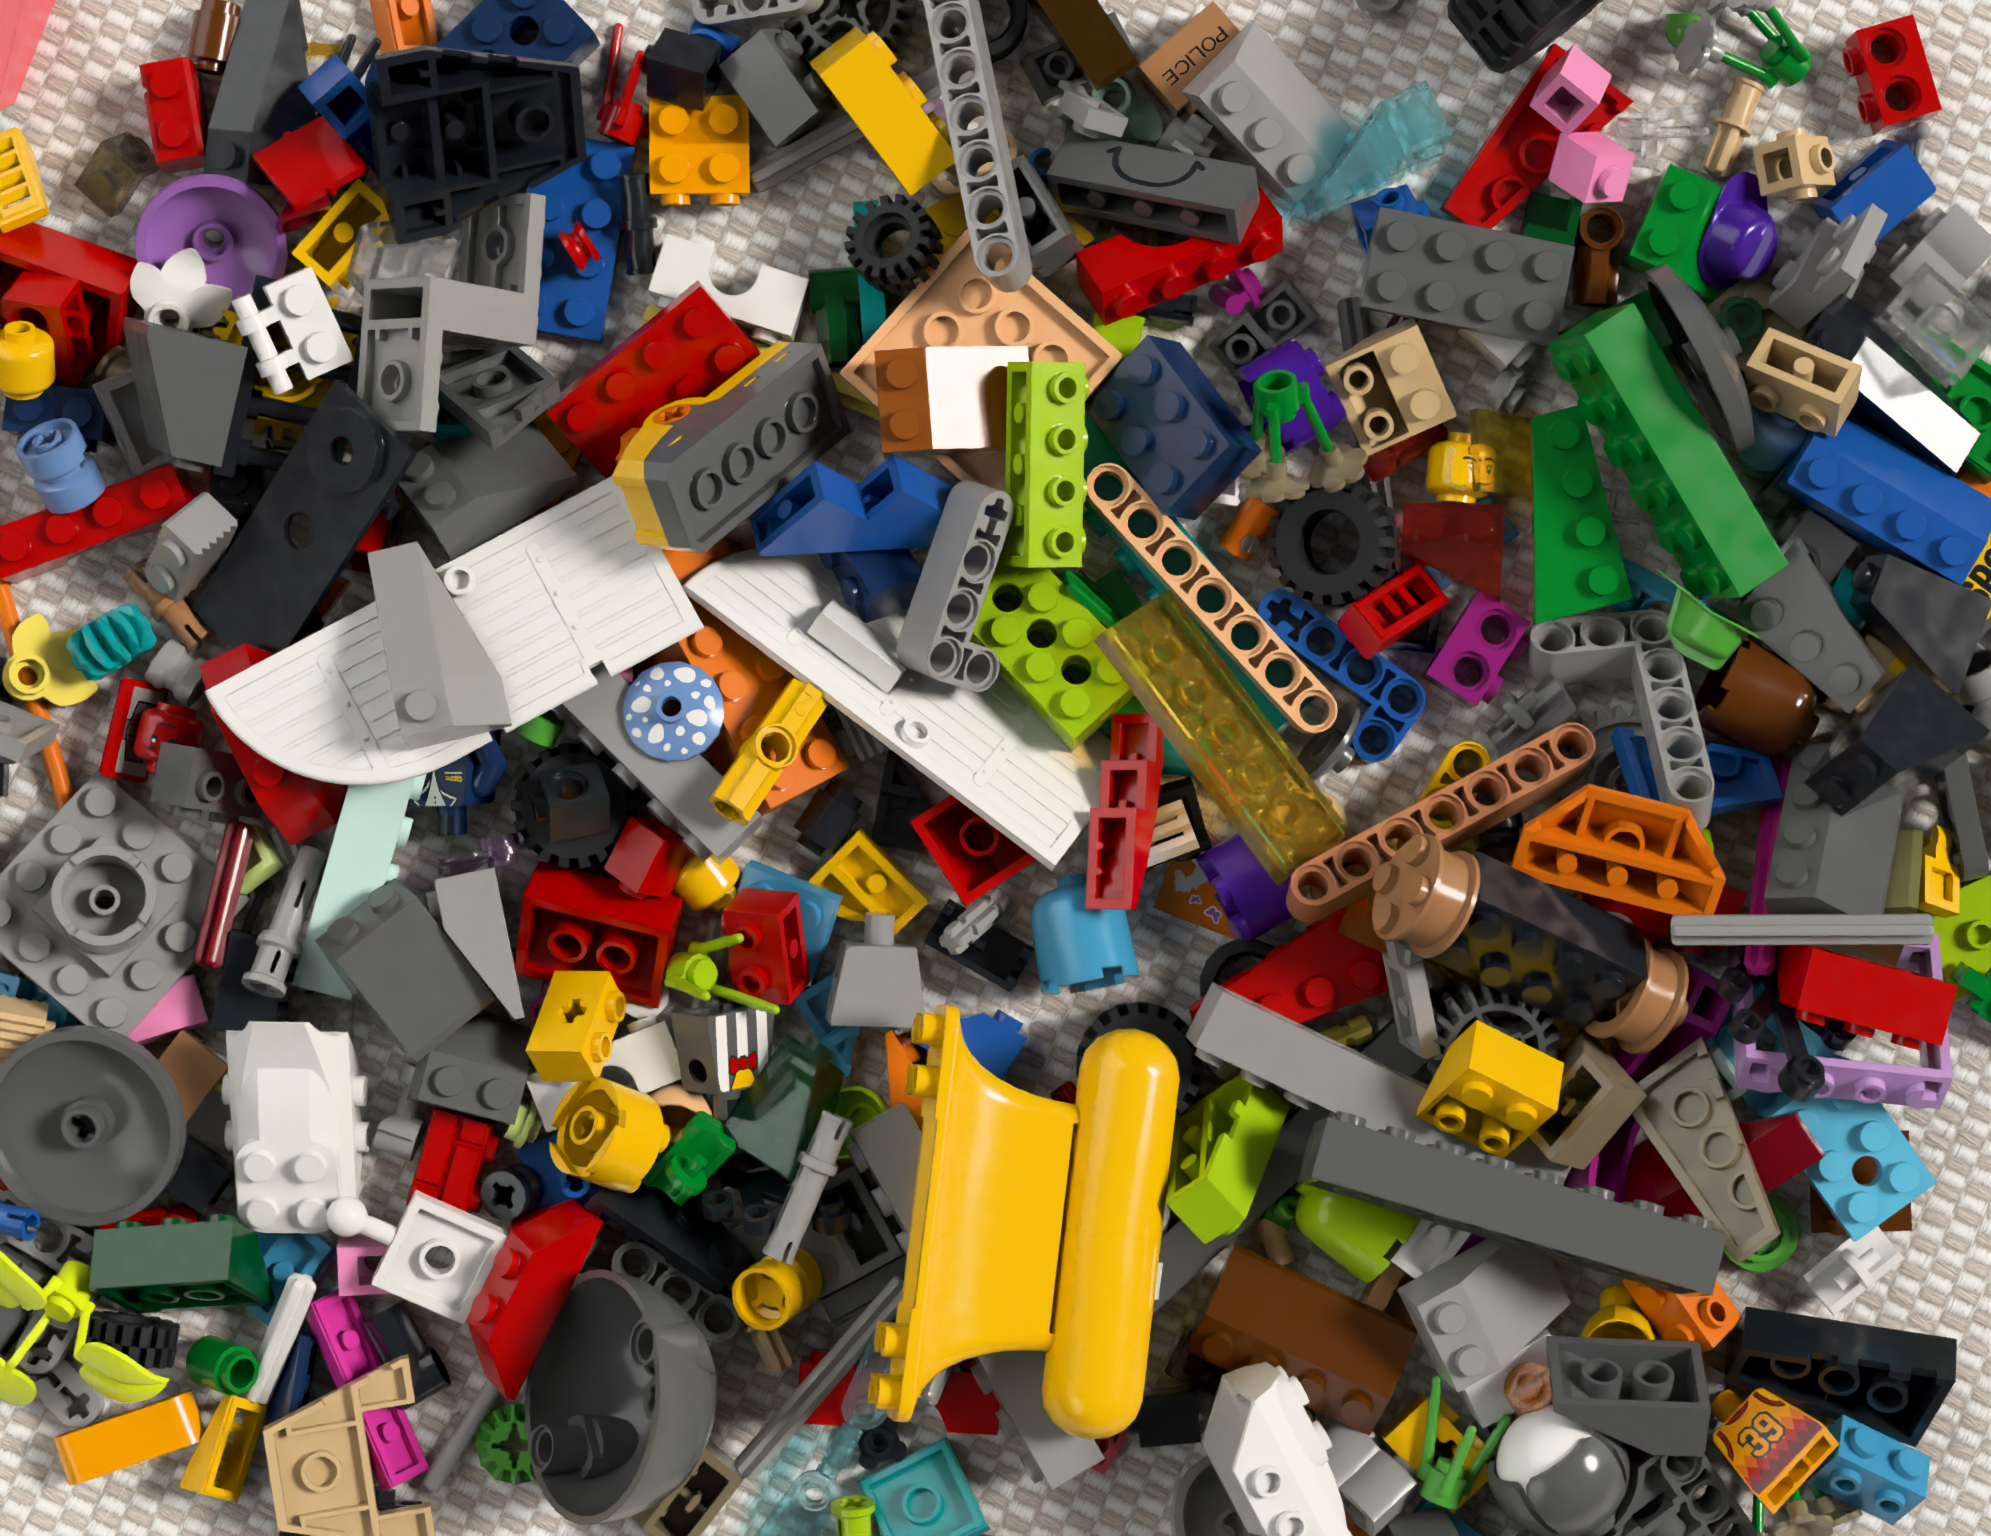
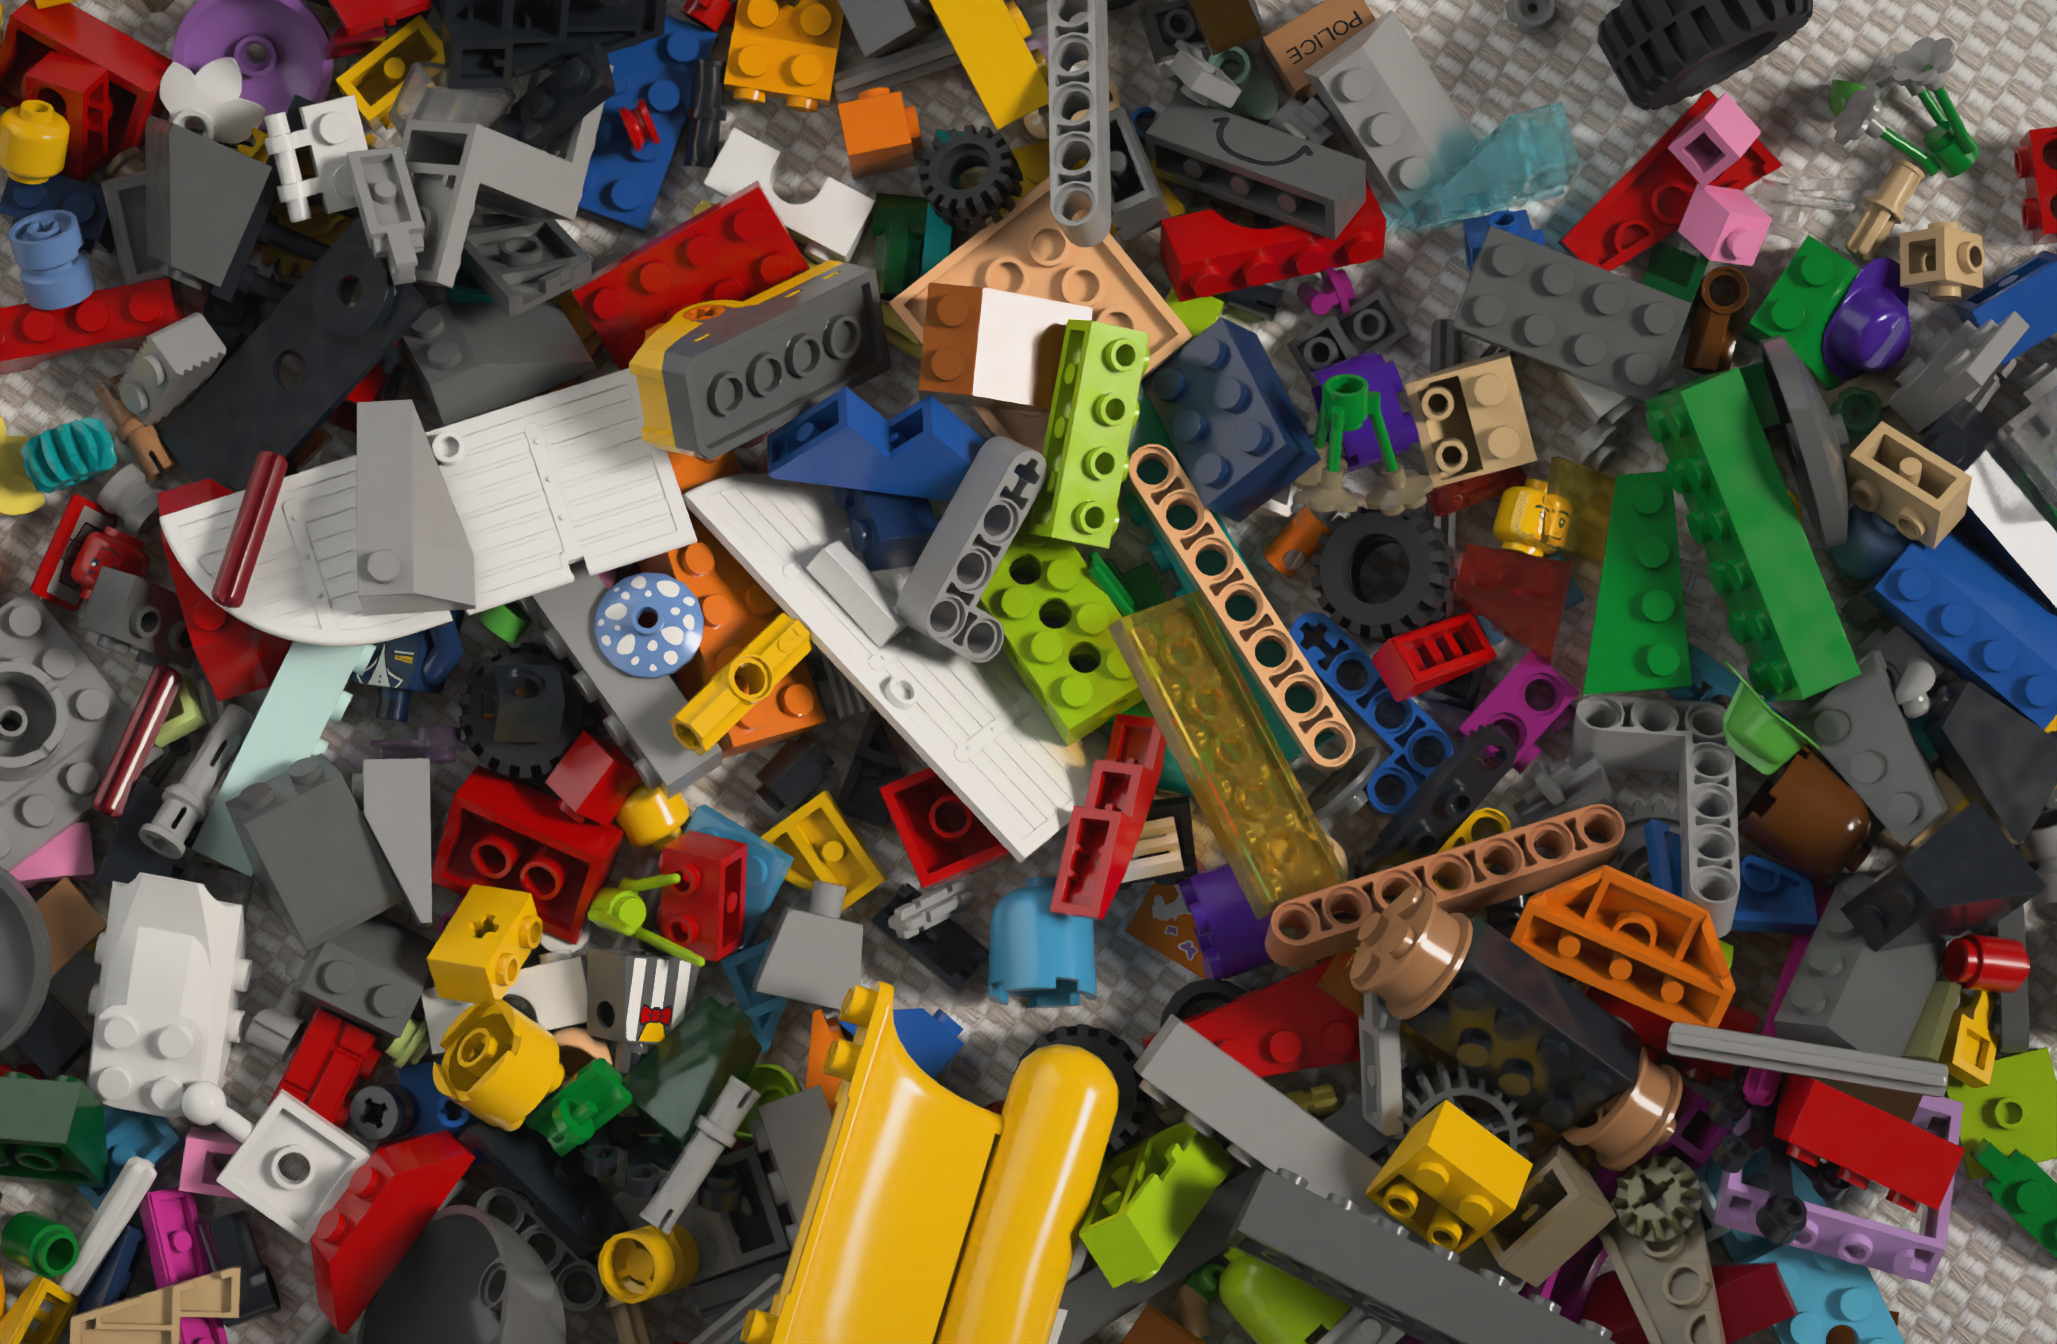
camera: 10 degrees right, 5 degrees down
(290, 689) = (249, 529): none -> dark red axle
(362, 368) = (388, 208): none -> light grey hinge
(501, 236) = (560, 99): none -> black hinge
(801, 214) = (879, 132): none -> orange brick
(1421, 747) = (1441, 802): none -> black plate
(1703, 1072) = (1682, 1198): none -> olive gear
(1836, 566) = (1914, 684): none -> light grey arm
(1941, 806) = (1986, 963): none -> red brick

